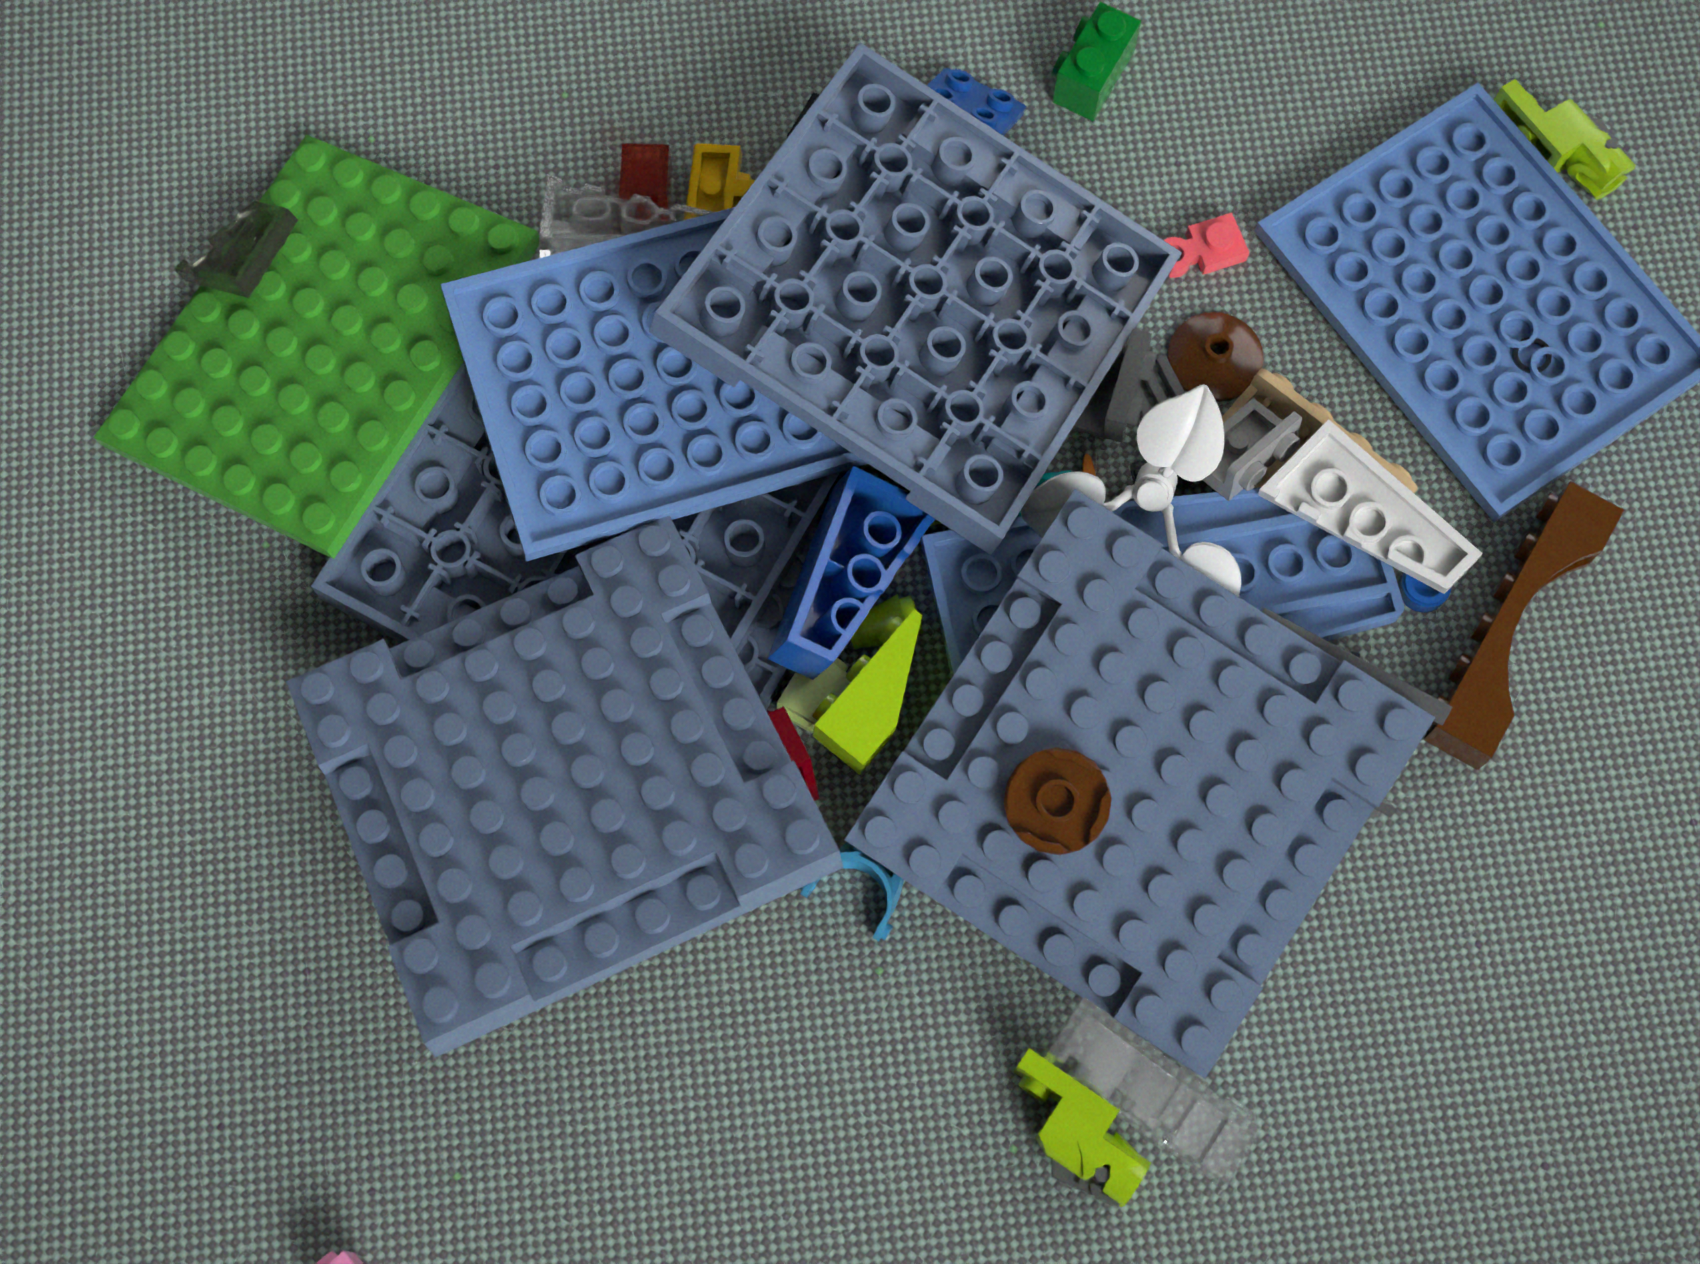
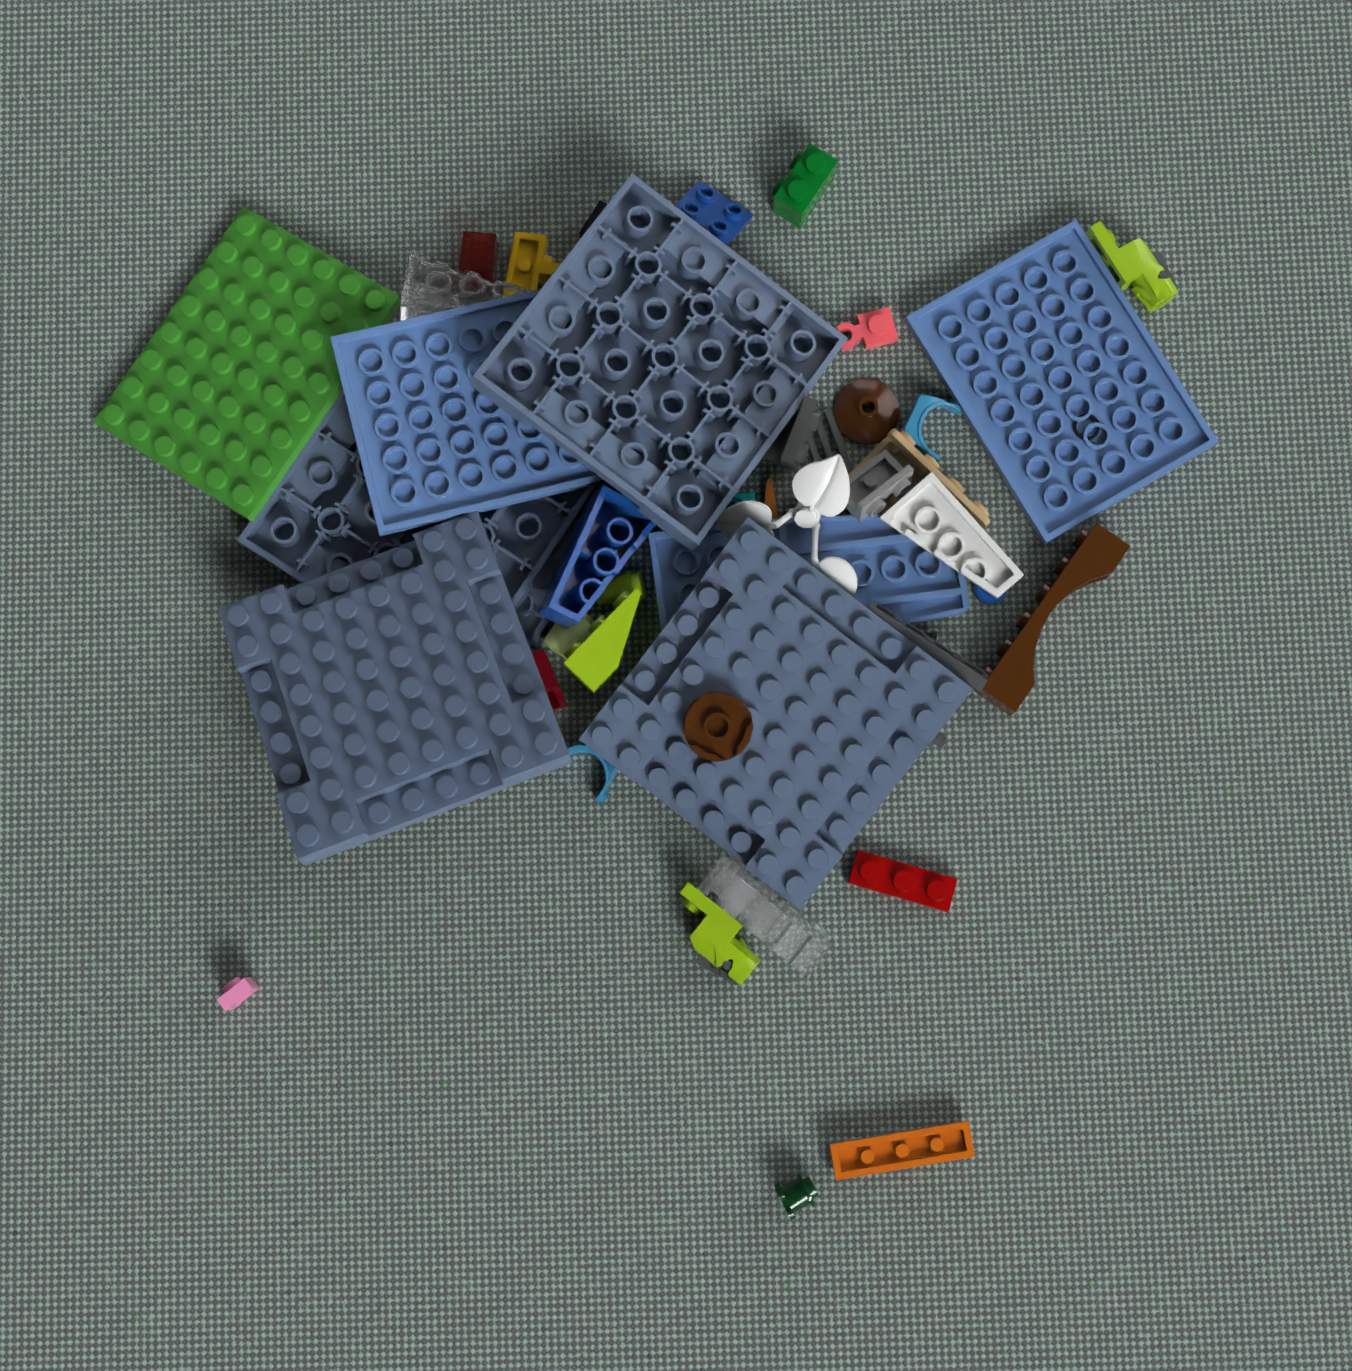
camera: 10 degrees right, 10 degrees up
(241, 250) = (196, 295): clear smoke wing -> none
(1294, 344) = (921, 407): none -> dark azure helmet
(1351, 1027) = (902, 881): none -> red plate

